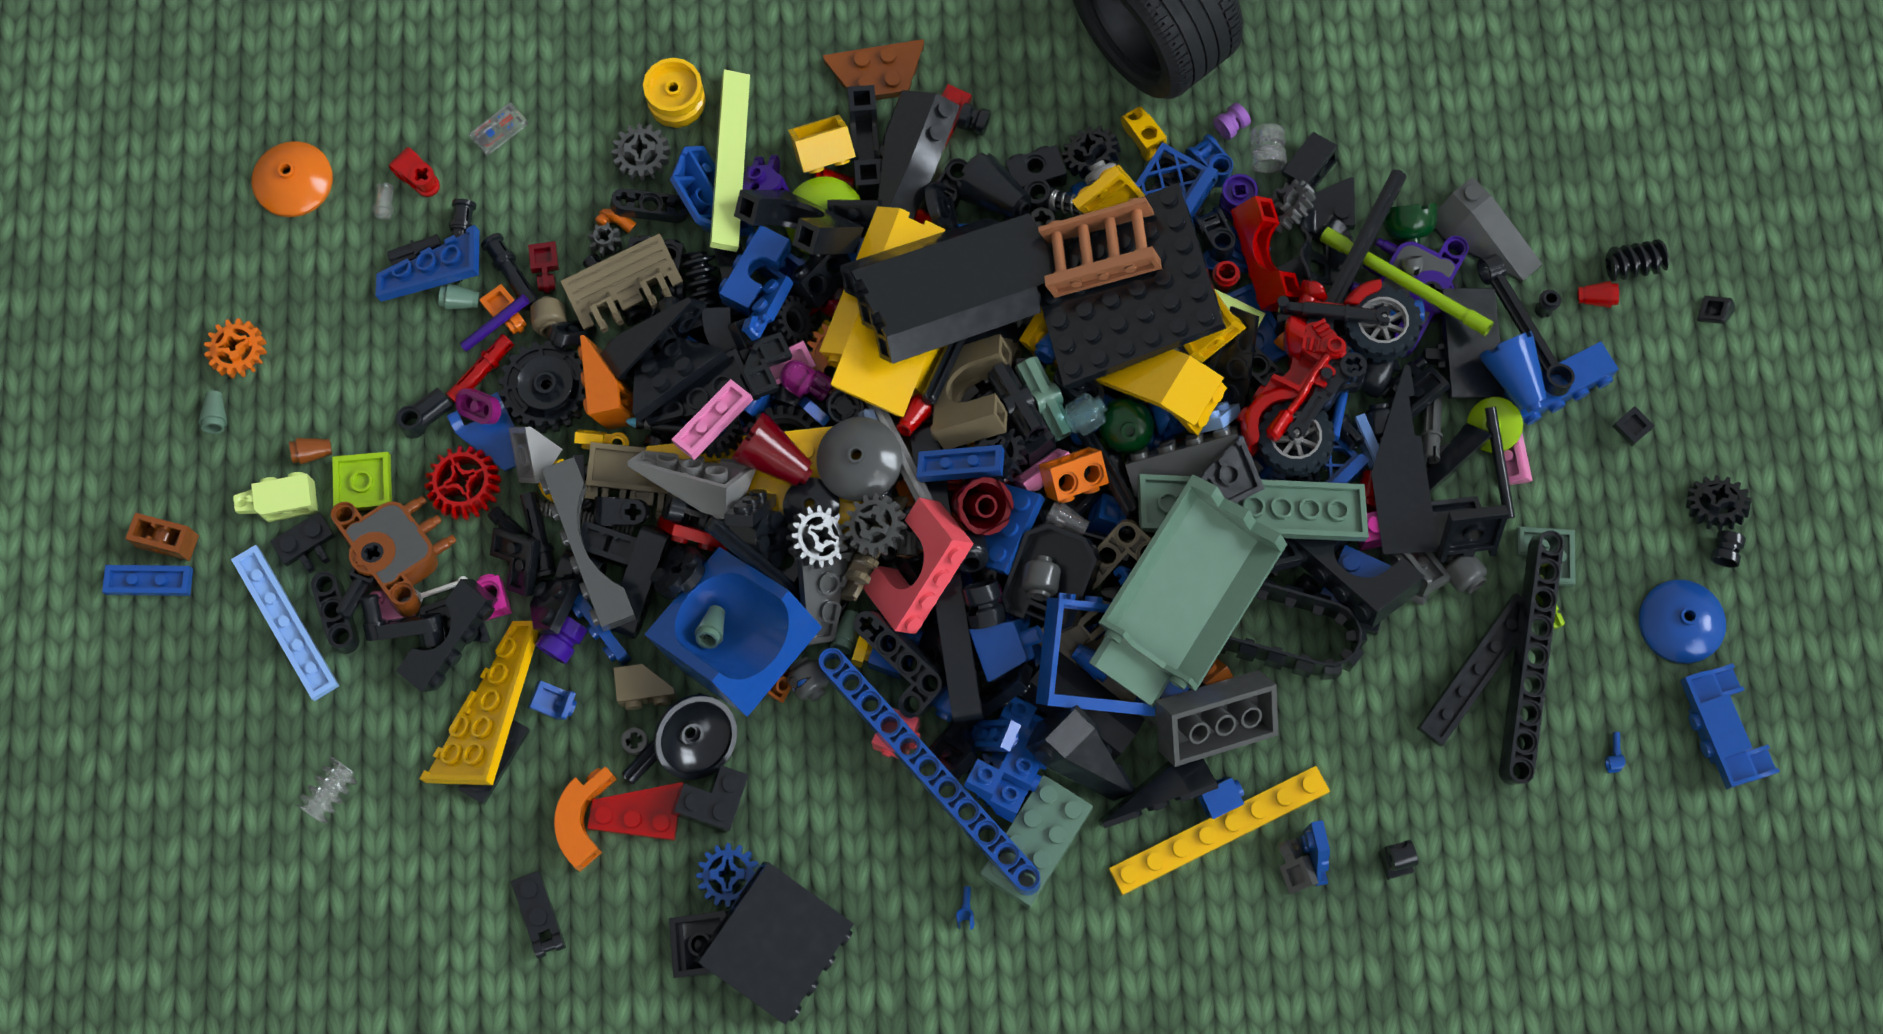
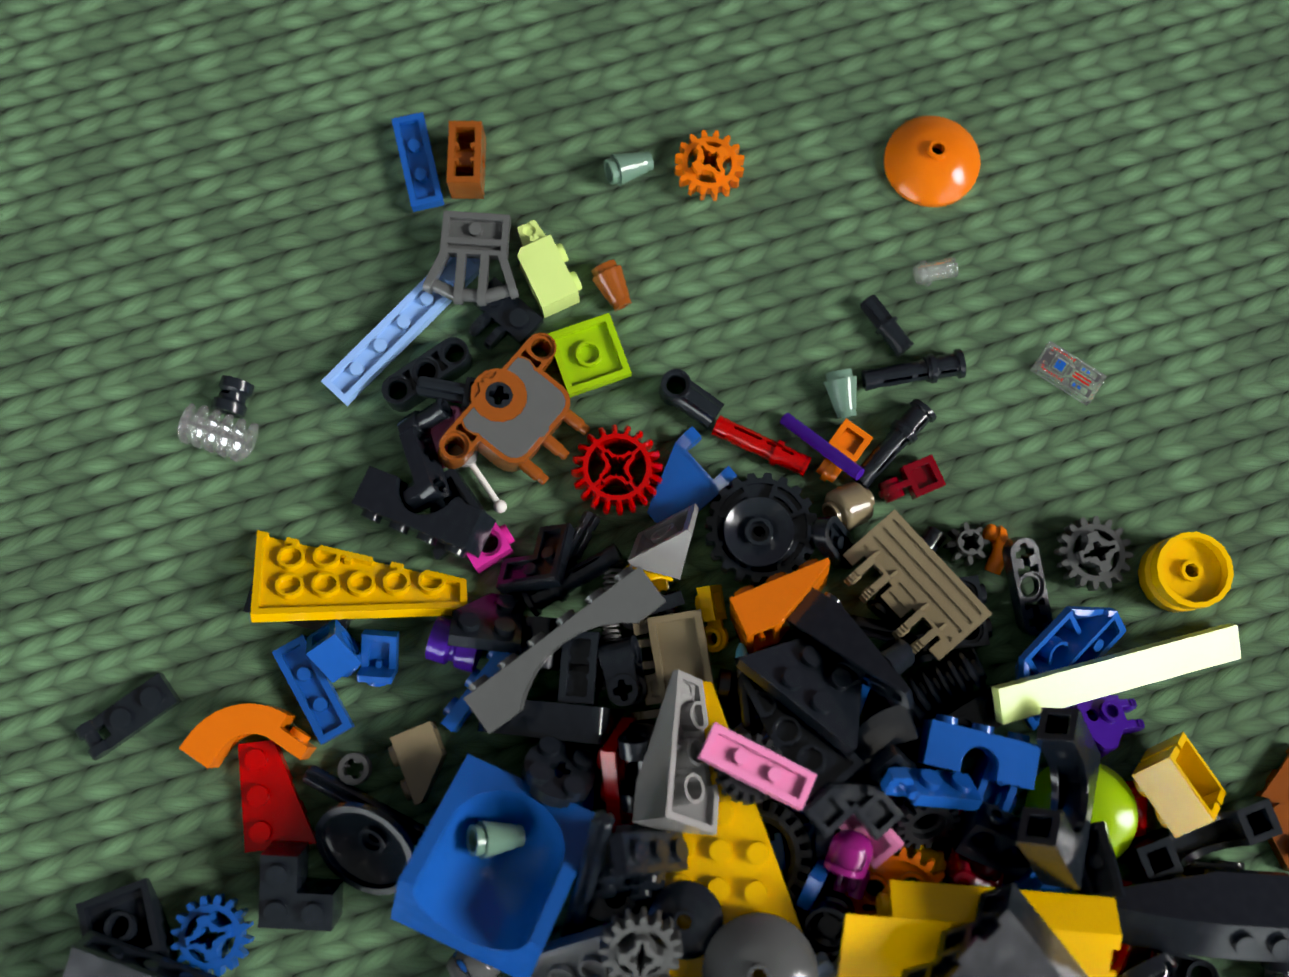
camera: 70 degrees right, 5 degrees up
(234, 539) = (478, 237): none -> dark grey plate
(299, 774) = (233, 396): none -> black wheel
(415, 173) = (983, 293): red piece -> none
(432, 268) = (869, 354): blue wing -> none
(478, 406) = (711, 459): magenta plate -> none
(536, 732) = (334, 651): none -> blue brick
(562, 759) = (313, 691): none -> blue plate
(773, 453) = (736, 855): dark red cone -> none

